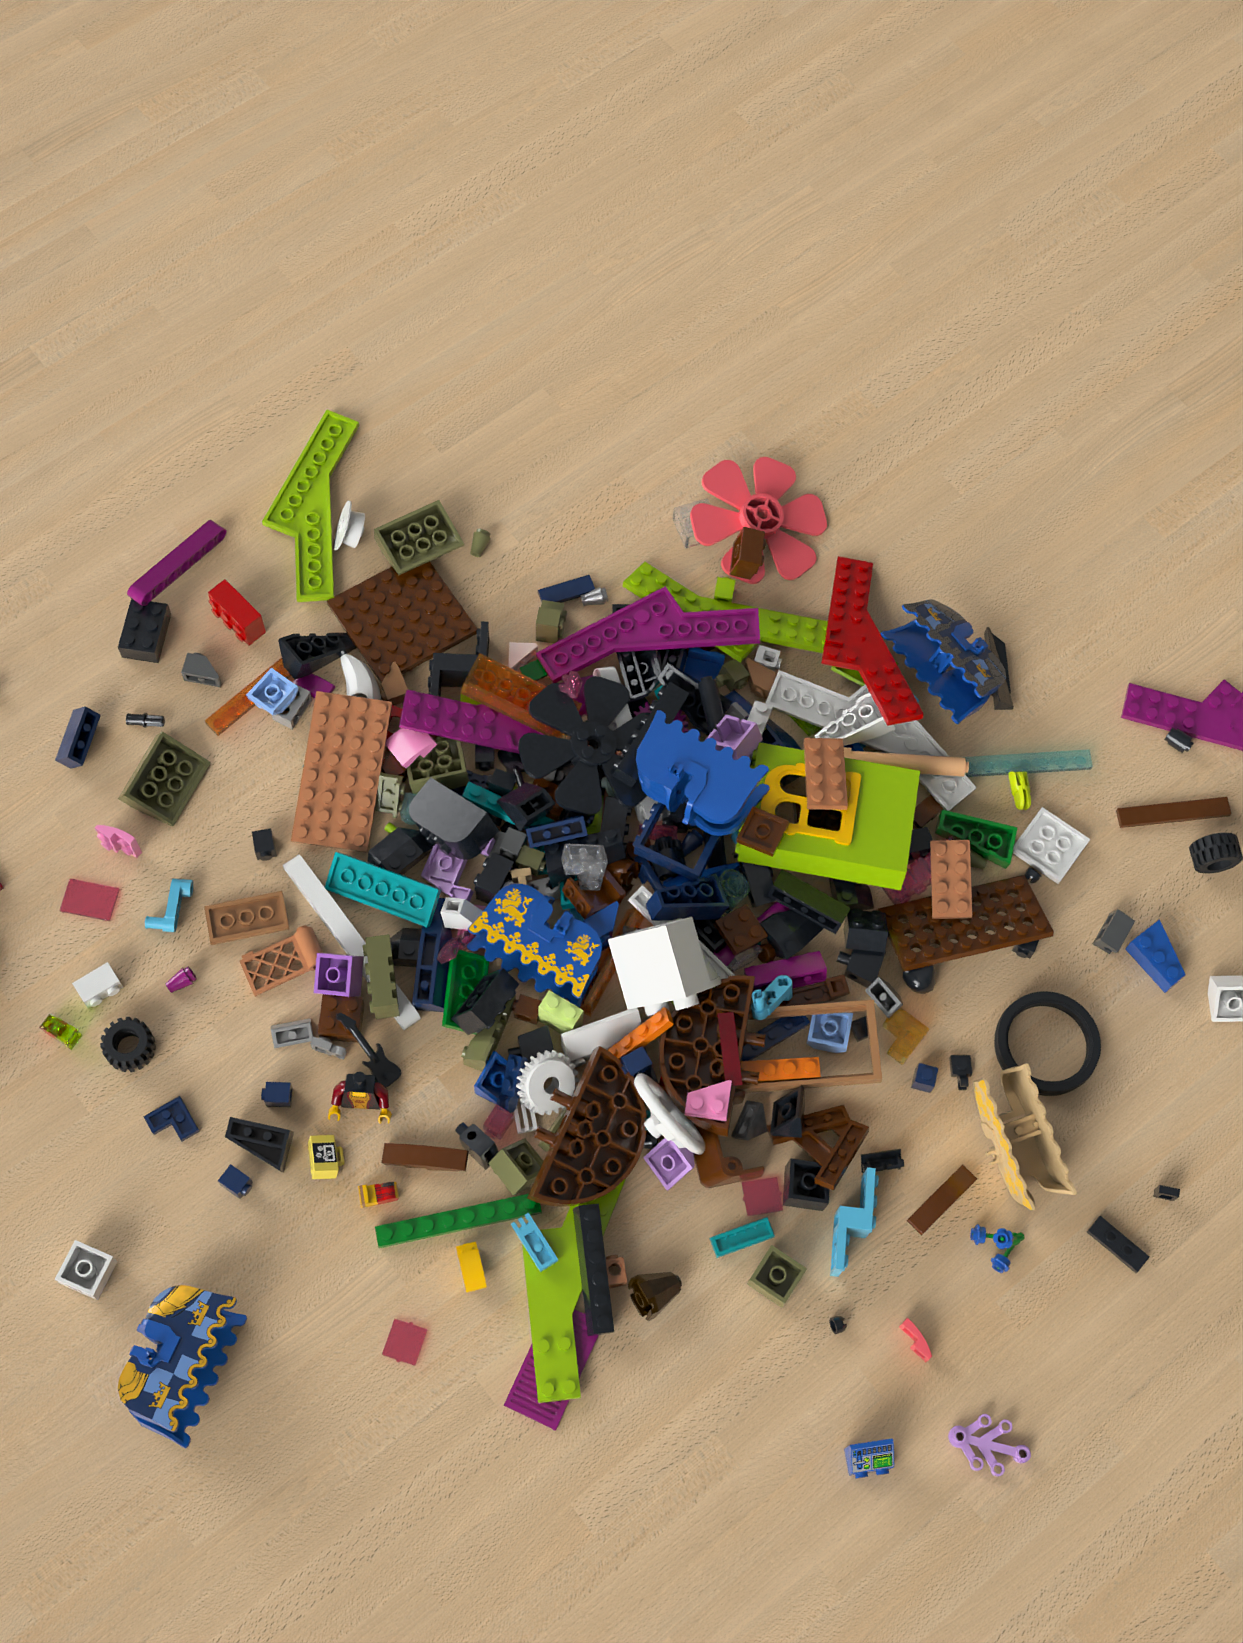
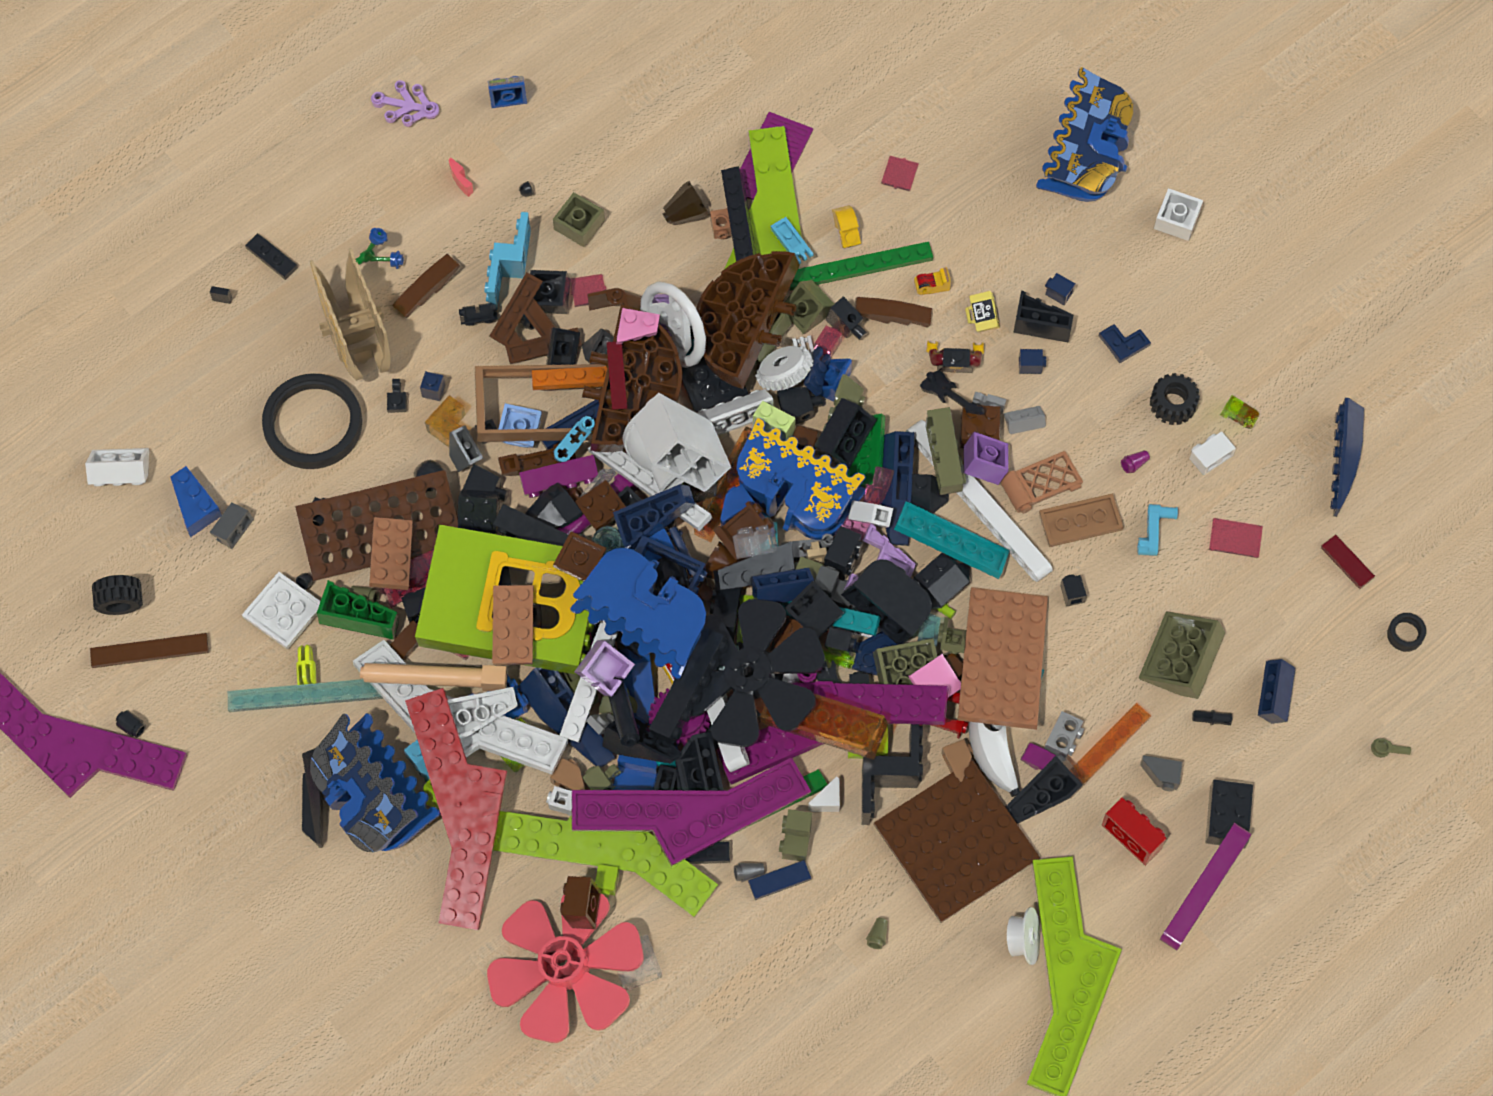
camera: 175 degrees left, 0 degrees up
(117, 839) = (1219, 586): bright pink slope -> none
(273, 692) = (1083, 734): light blue slope -> none
(417, 537) = (945, 927): olive slope -> none
(572, 684) = (770, 723): clear pink tile -> none
(636, 1063) = (703, 377): dark blue brick -> none
(643, 1034) = (703, 395): orange plate -> none
(742, 1237) = (607, 254): teal plate -> none

